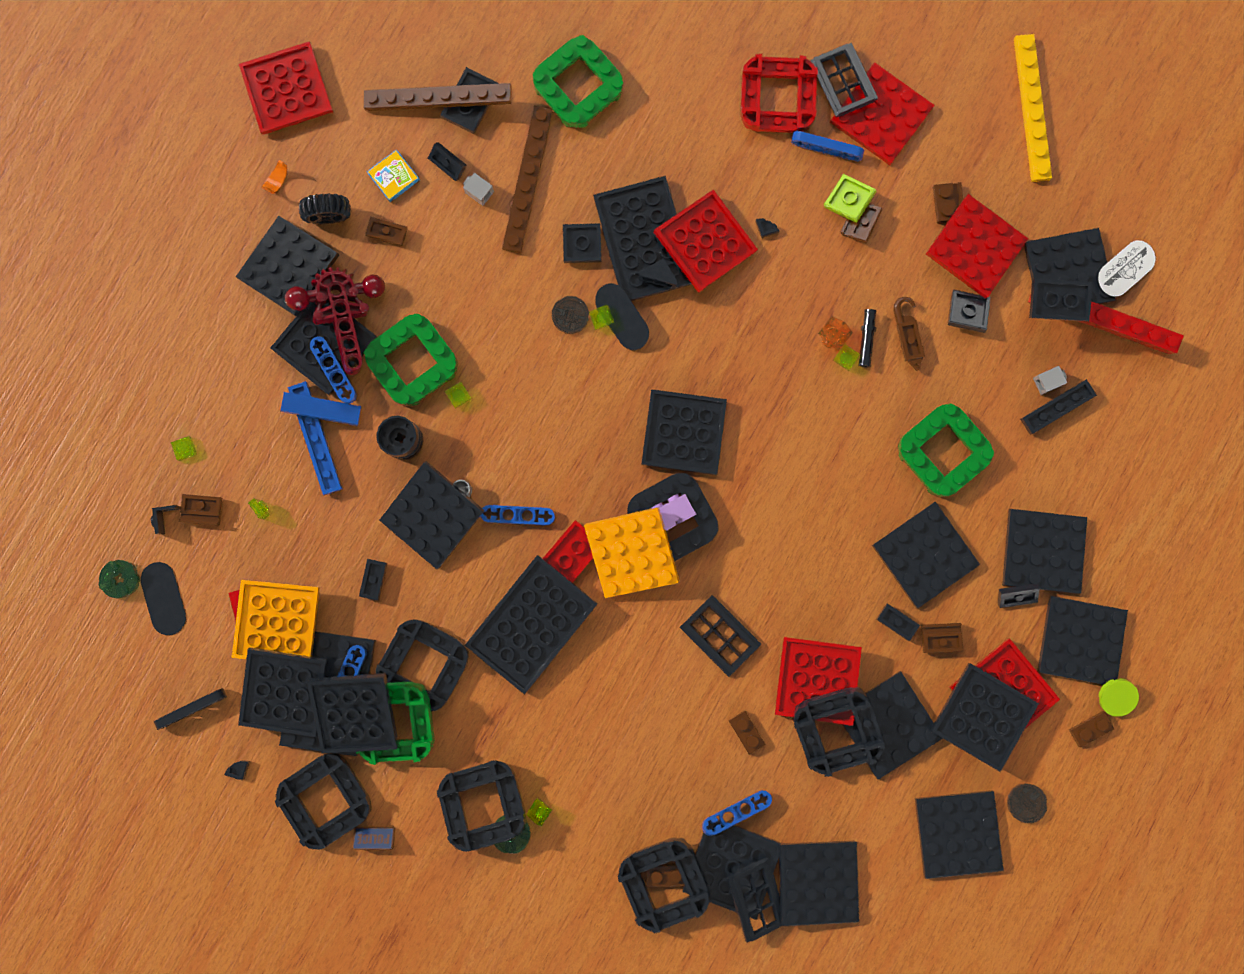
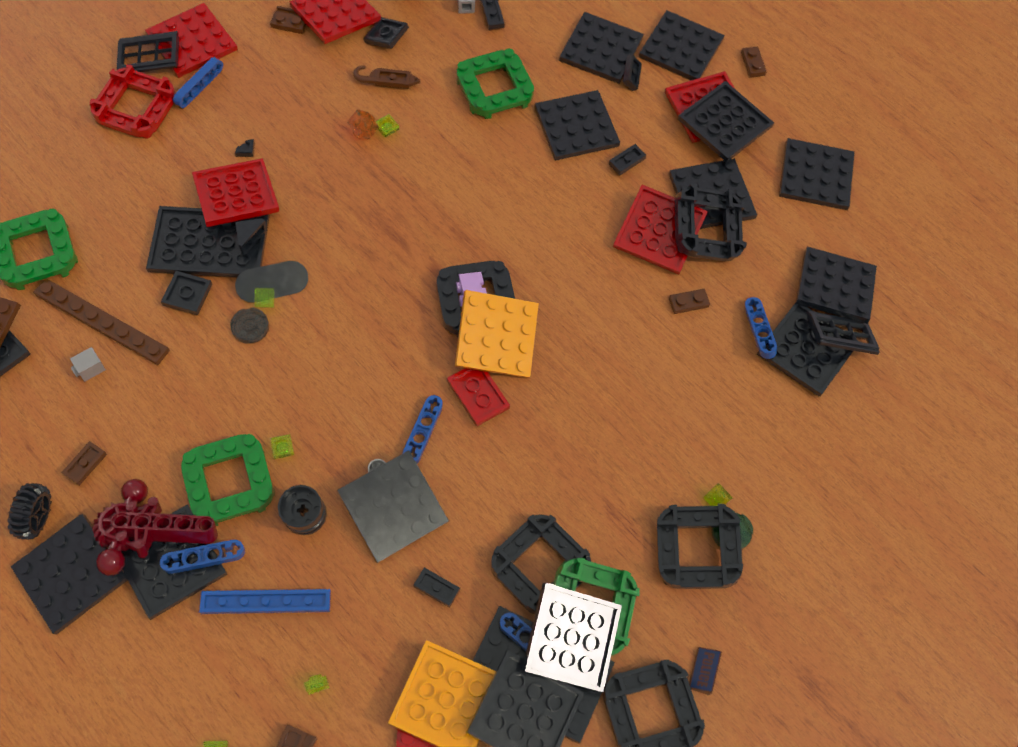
camera: 80 degrees left, 20 degrees down
(320, 408) = (237, 583): blue tile -> none
(393, 175) = (31, 440): tile -> none
(447, 161) = (44, 384): black plate -> none
(531, 624) = (534, 447): black plate -> none
(639, 897) = (839, 401): black plate -> none
(664, 876) = (803, 407): reddish brown plate -> none
(684, 432) = (400, 265): black plate -> none
(707, 648) = (603, 309): black piece -> none
(850, 198) = (251, 81): lime tile -> none
(863, 228) = (275, 79): reddish brown plate -> none
(867, 337) = (370, 103): black pin -> none
(942, 637) = (650, 133): reddish brown plate -> none
(1027, 803) = (802, 121): clear smoke tile -> none
(1118, 697) = (733, 35): lime tile -> none

